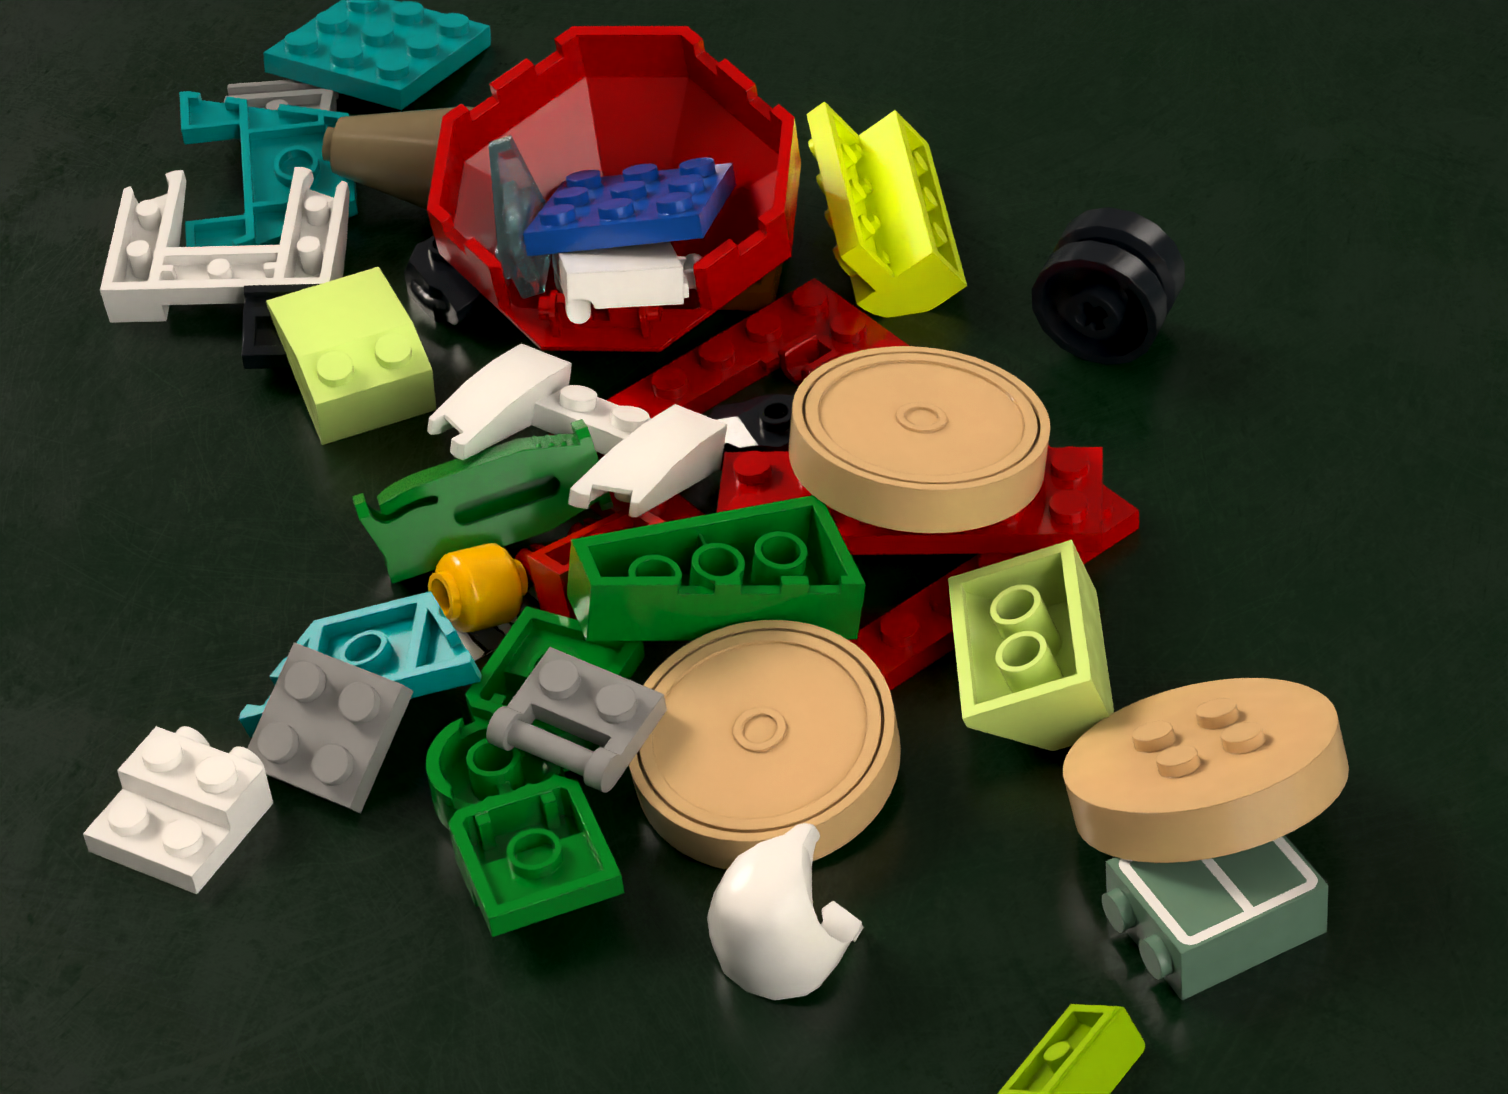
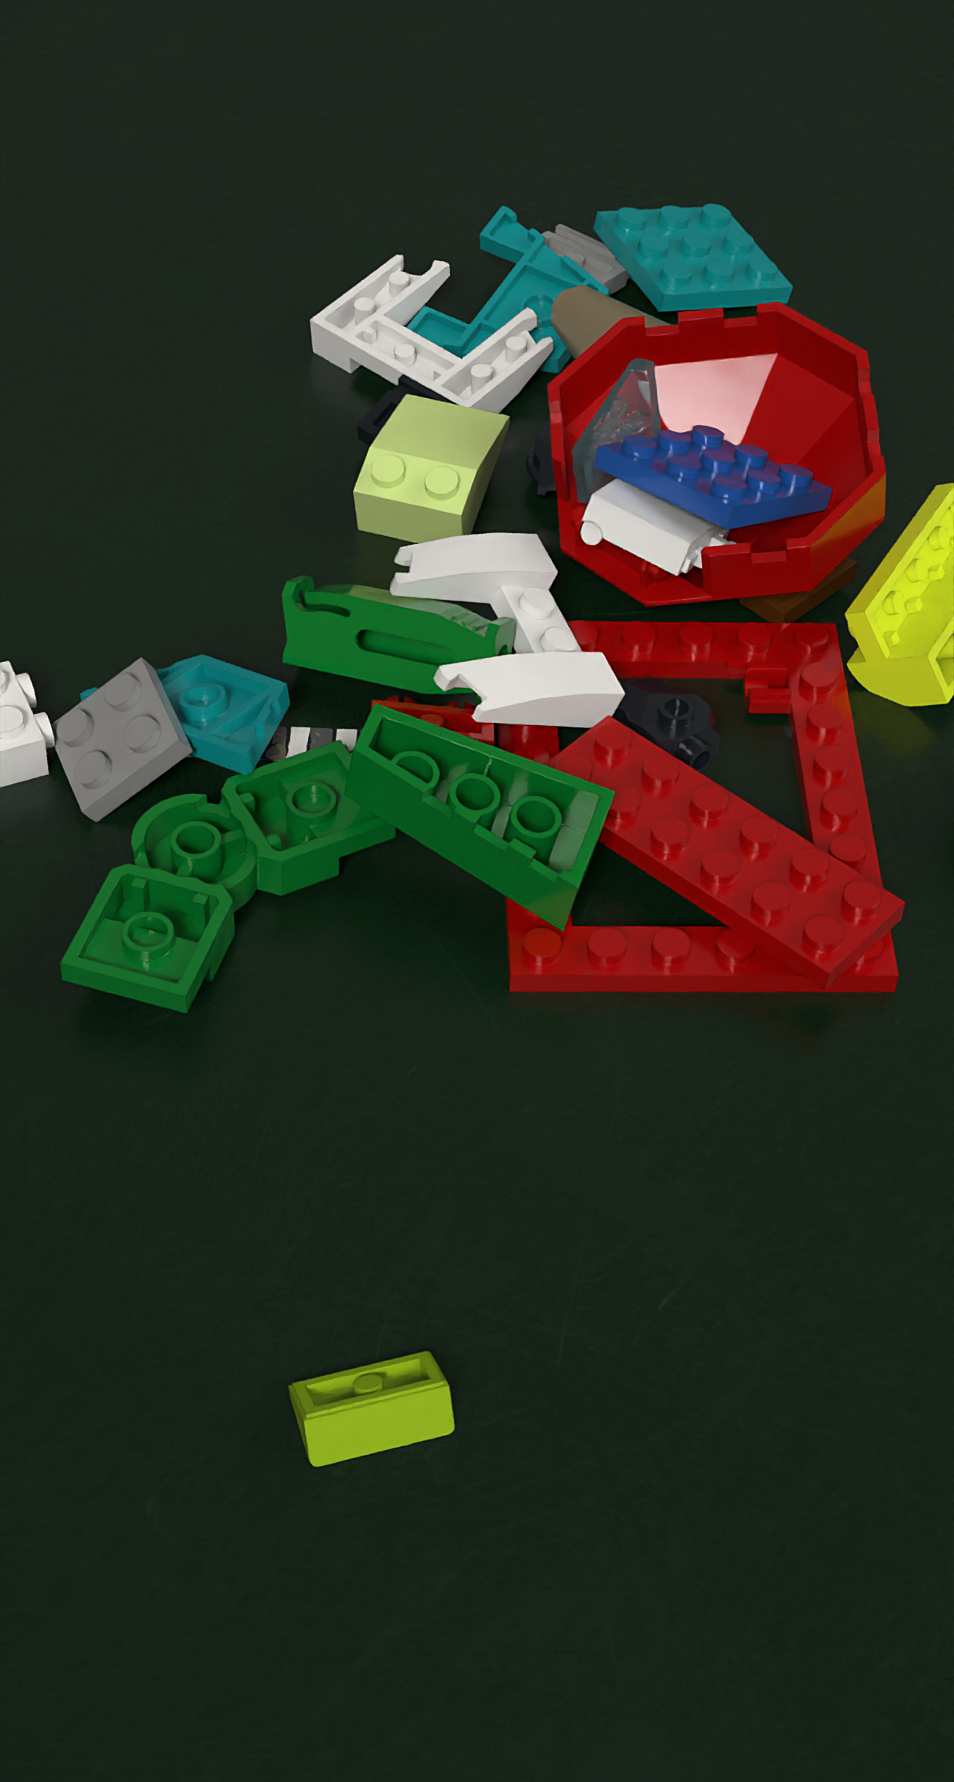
camera: 30 degrees right, 5 degrees up
(479, 587) = (333, 703): yellow head -> none
(585, 704) = (292, 843): light grey plate -> none
(766, 735) = (403, 969): tan brick -> none
(767, 920) = (241, 1104): white piece -> none
(918, 439) = (738, 798): tan brick -> none
(1031, 648) = (683, 1035): yellowish green slope -> none
(1206, 770) = (705, 1234): tan brick -> none
(1217, 913) = (619, 1347): sand green brick -> none

